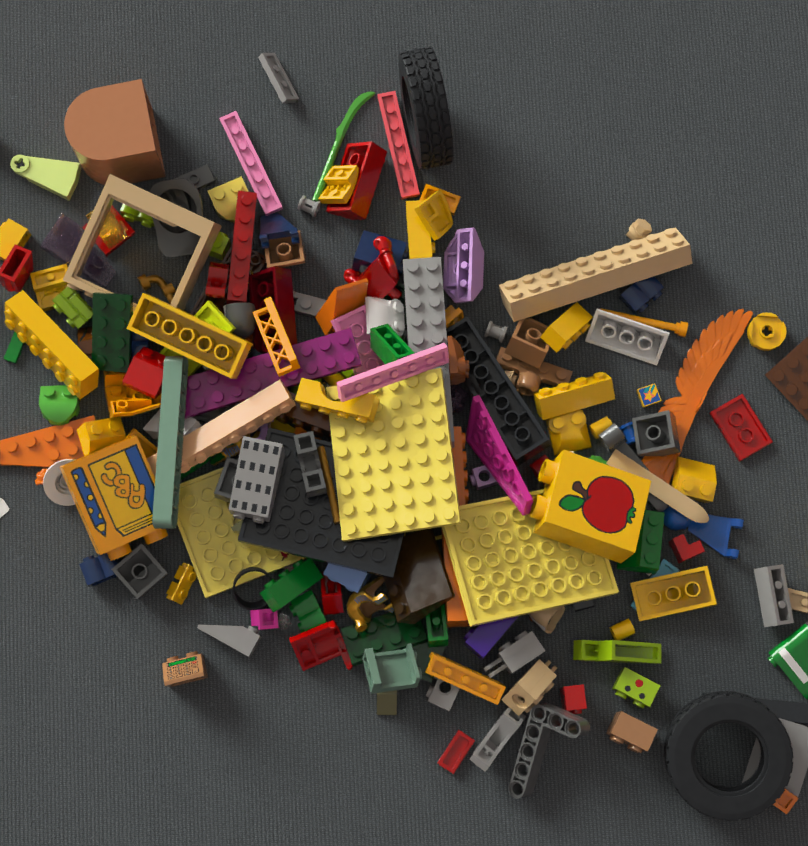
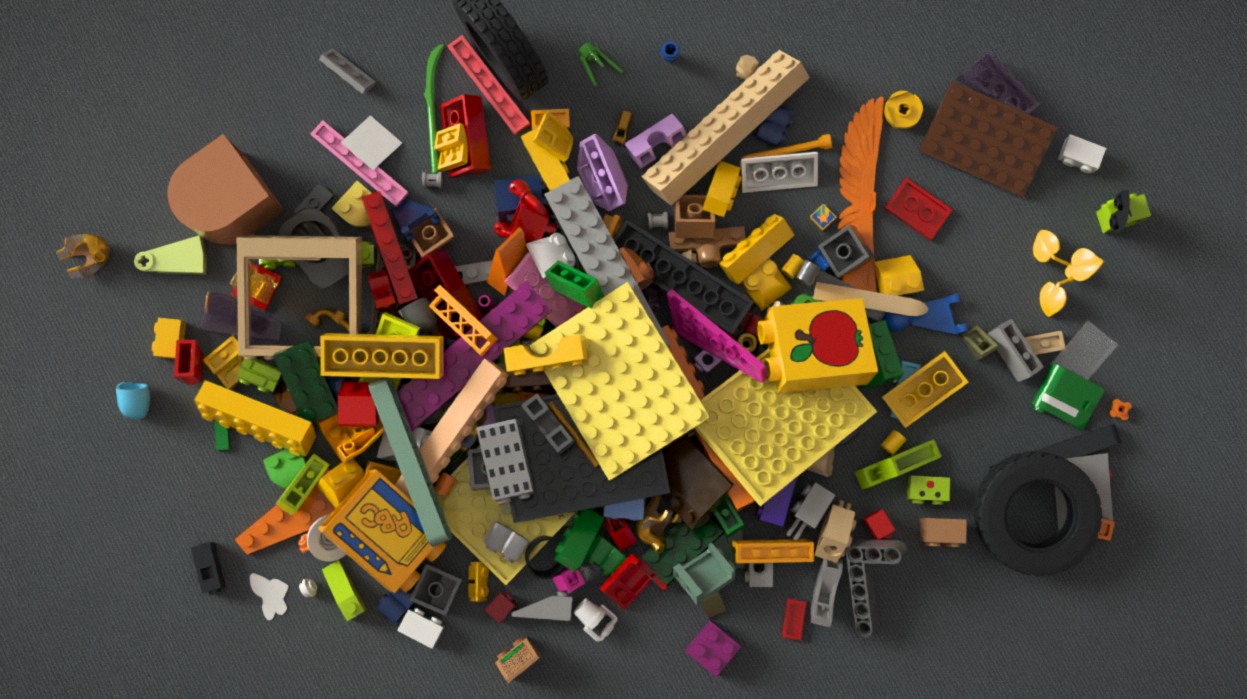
camera: 20 degrees left, 5 degrees up
(26, 518) = (308, 588): none -> white plate
(56, 537) = (344, 591): none -> lime slope
(65, 422) = (302, 484): none -> lime slope
(110, 601) = (421, 627): none -> white brick
(191, 615) = (501, 606): none -> dark red brick
(192, 480) = (444, 484): none -> orange piece
(224, 558) = (506, 542): none -> light grey brick
(269, 660) = (591, 615): none -> white piece
(270, 149) = (371, 142): none -> white sticker
(302, 338) = (487, 307): none -> dark pink cone
(368, 743) = (712, 648): none -> magenta brick
(392, 372) = (586, 306): bright pink plate -> none
(503, 156) = (591, 53): none -> bright green plant
(503, 234) = (623, 126): none -> pearl gold bar
(512, 258) = (665, 131): none -> lavender arch
(531, 474) = (750, 339): none -> yellow brick
(575, 186) = (672, 48): none -> blue cone
(683, 550) = (916, 345): red piece -> none
(743, 574) = (979, 342): none -> olive slope

